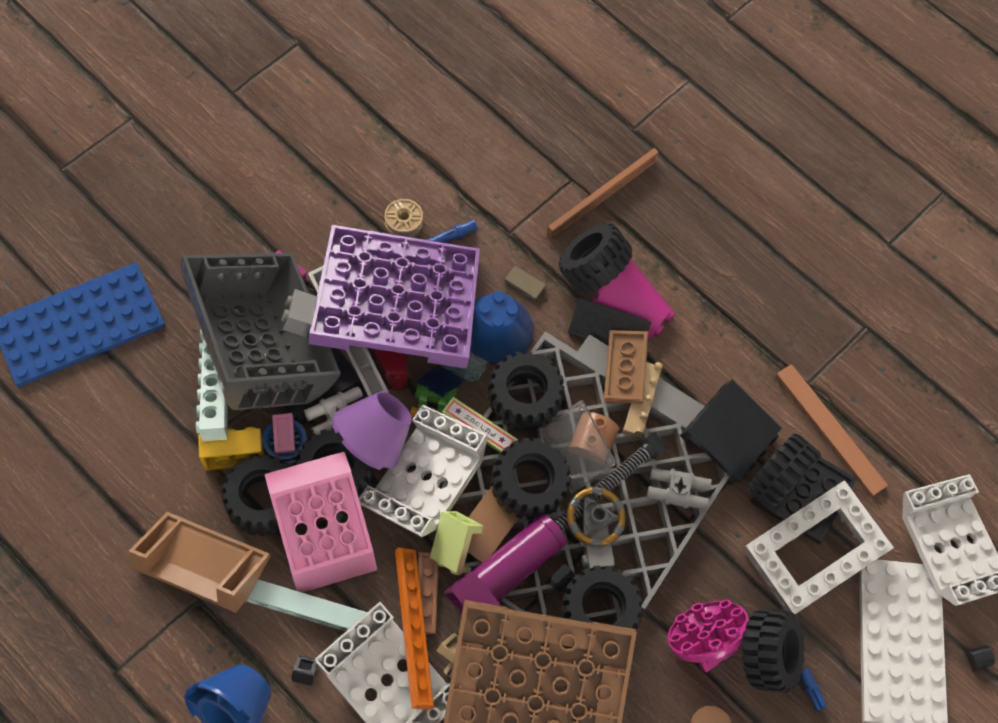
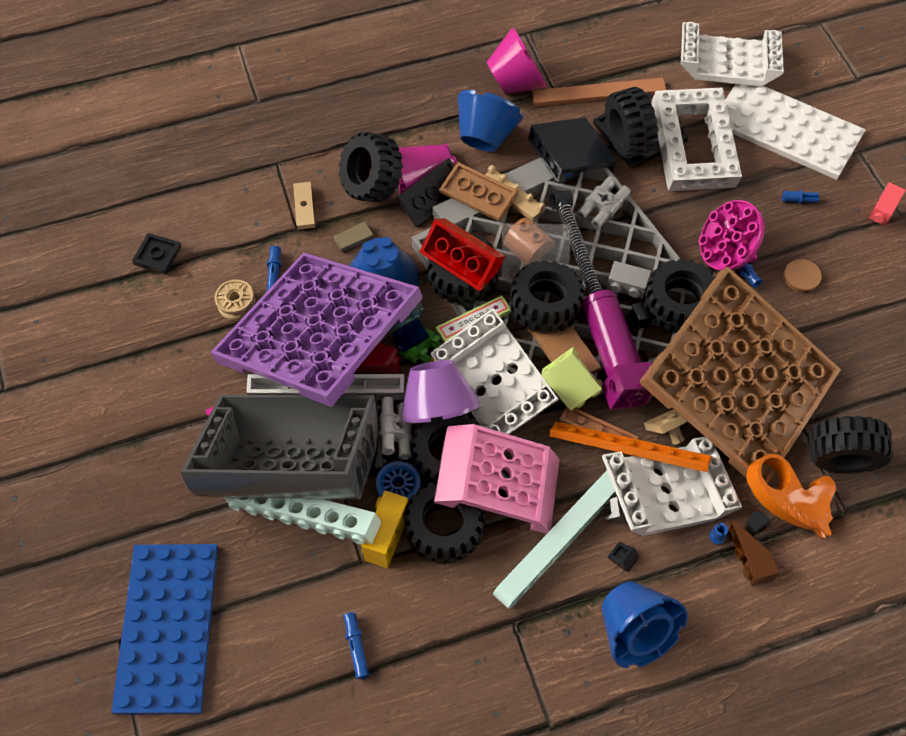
camera: 55 degrees left, 5 degrees down
(122, 475) = (354, 637): none -> blue pin
(199, 561) = (483, 601): medium nougat slope -> none
(283, 434) = (394, 478): bright pink tile -> none
(299, 313) = (296, 401): light grey brick -> none
(419, 133) = (156, 253): none -> black plate
(526, 229) = (304, 205): none -> tan tile
(527, 379) = (461, 253): none -> red slope
(596, 516) = (605, 263): dark grey piece -> none
(602, 194) = (306, 146): nougat tile -> none
(680, 671) = (748, 272): none -> blue pin
(712, 335) = (486, 119): none -> blue cone
(773, 650) = (769, 196): black tyre -> none
(803, 334) = (514, 66): none -> dark pink cone
(980, 657) = (820, 86): black brick -> none

